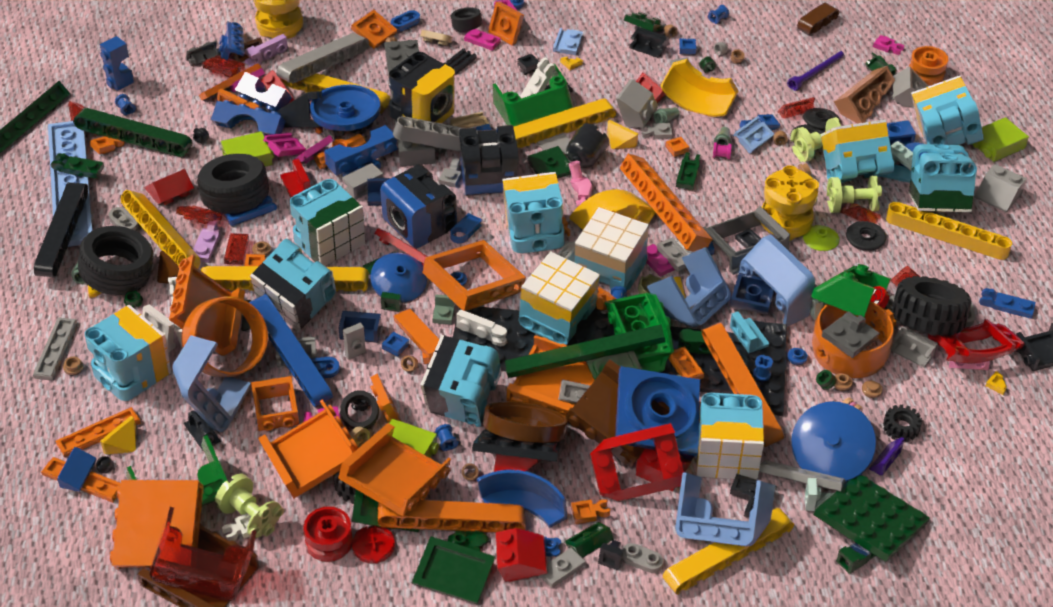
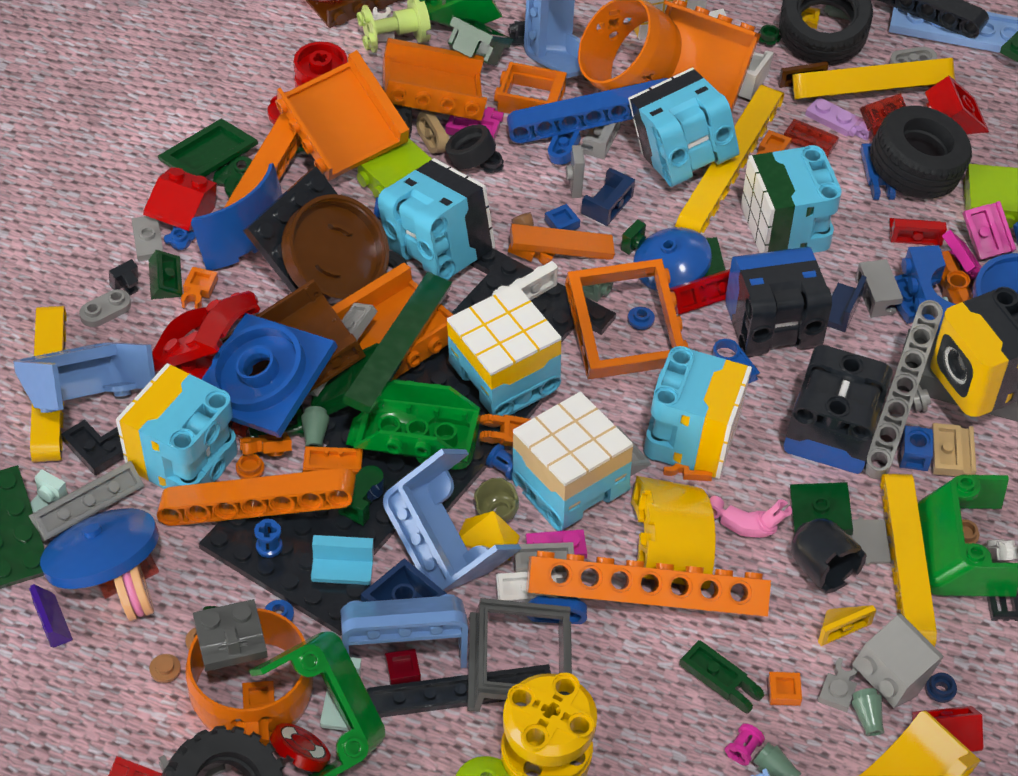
camera: 115 degrees right, 5 degrees up
(239, 442) = (475, 37): none -> panel
(384, 399) = (469, 159): orange plate -> none
(902, 414) = (79, 650): black tyre -> none

